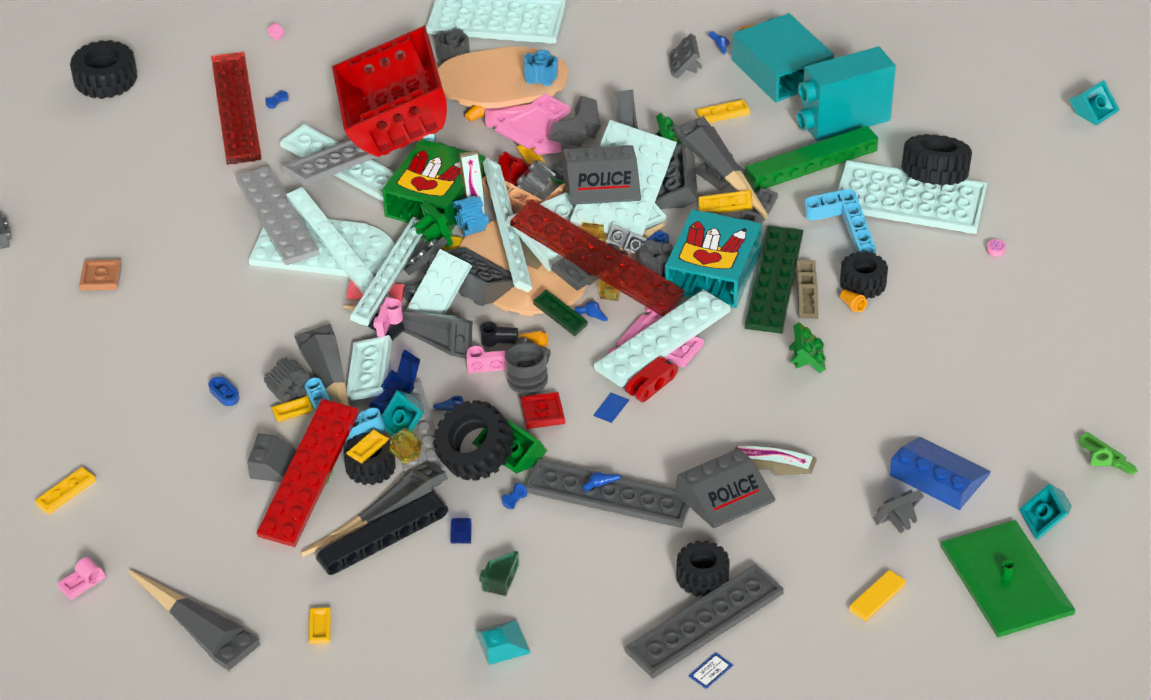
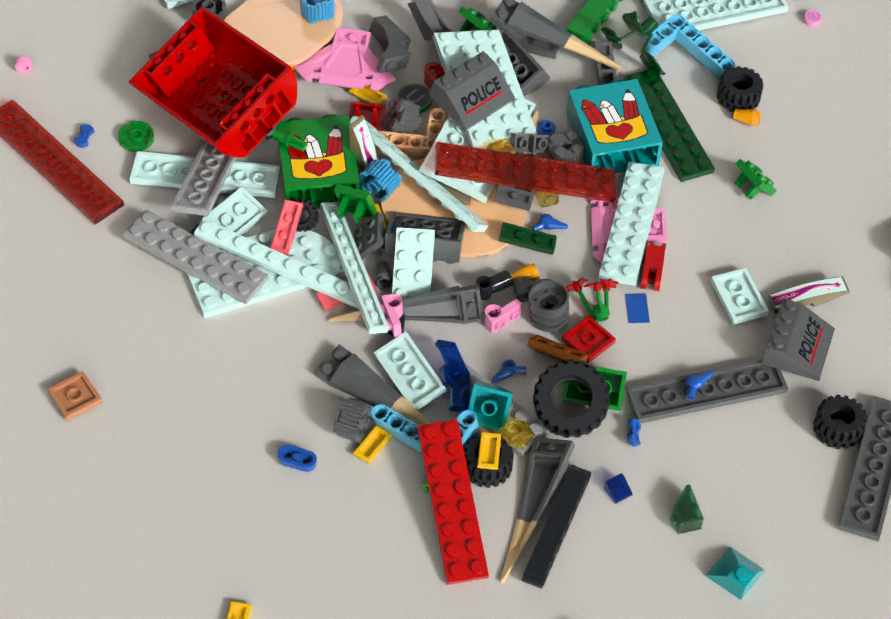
camera: 35 degrees left, 10 degrees up
(269, 458) = (400, 504): dark grey slope -> none
(316, 115) = (136, 136): none -> green tile
(338, 198) = (237, 212): none -> light aqua plate
(364, 221) = (287, 226): none -> coral tile
(379, 215) = (313, 215): none -> black tyre
(415, 153) = (289, 140): none -> green axle
(505, 405) = (556, 349): none -> dark orange plate
(570, 392) = (600, 311): none -> plant
(708, 434) = (739, 296): none -> light aqua plate
(726, 202) = (577, 70): yellow tile -> none
(807, 289) = (703, 123): dark tan slope -> none
(808, 188) = (642, 30): none -> dark green plant

